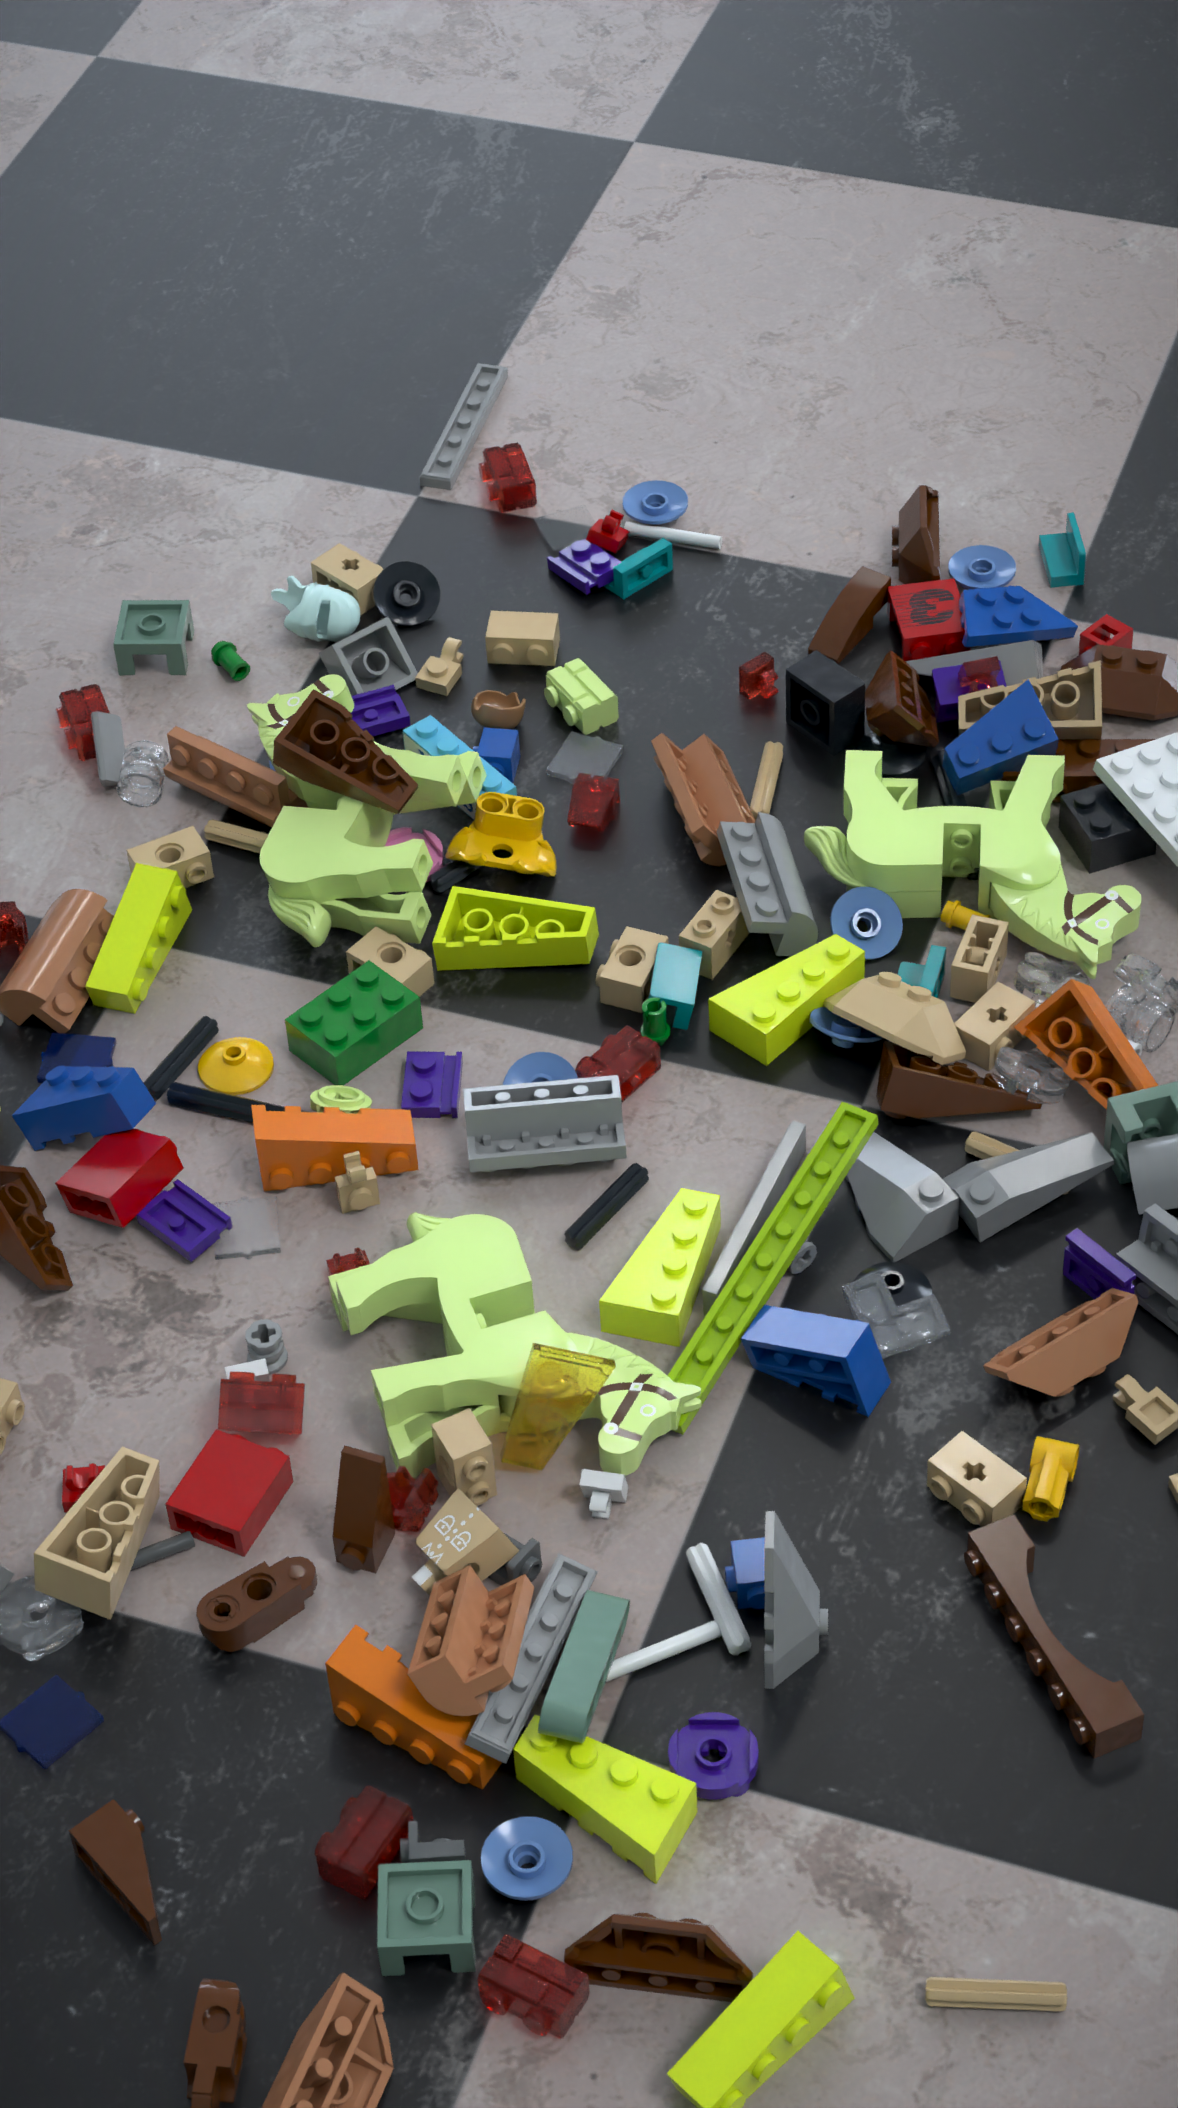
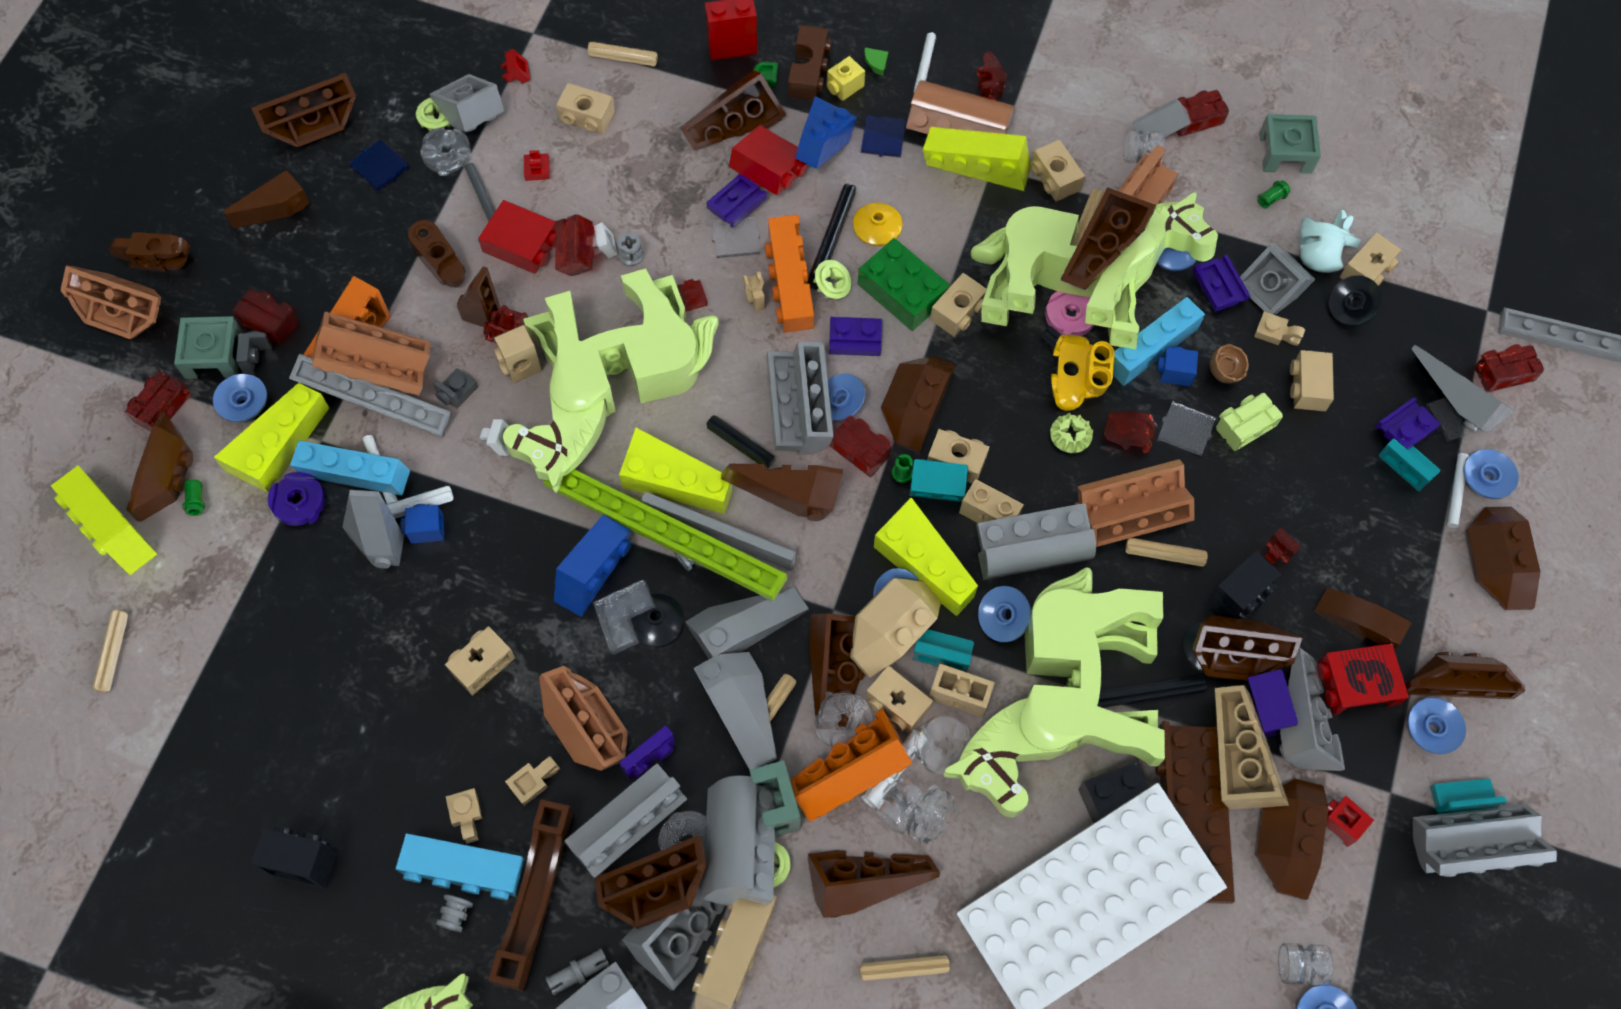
camera: 85 degrees right, 20 degrees up
(99, 1537) = (480, 168): tan wedge -> none
(181, 1056) = (880, 190): black axle -> none
(460, 1538) = (459, 357): tan torso -> none
(512, 931) = (990, 368): neon yellow wedge -> none
(542, 1007) = (915, 399): none -> reddish brown wedge
(550, 1402) = (544, 396): clear yellow wing -> none
(558, 505) = (1469, 400): none -> light grey wedge
(581, 871) = (1064, 440): none -> yellowish green gear
(584, 1667) = (351, 420): sand green beam -> none
(608, 532) = (1446, 440): red tile -> none
(664, 1670) = (350, 467): none -> medium azure brick
(701, 1118) = (800, 492): none -> reddish brown wedge
(716, 1907) = (193, 498): none -> green pin
(760, 498) = (1505, 557): none -> reddish brown wedge
(957, 915) = (1016, 687): yellow pin -> none
(979, 672) = (1272, 703): clear red tile -> none
(1000, 741) = (1193, 719): blue wedge -> none
(1009, 616) = (1366, 739): blue wing -> none
(1051, 1468) = (487, 711): yellow piece -> none
(1099, 1710) = (290, 724): reddish brown arch -> none
(1119, 543) = (1481, 840): none -> light grey brick

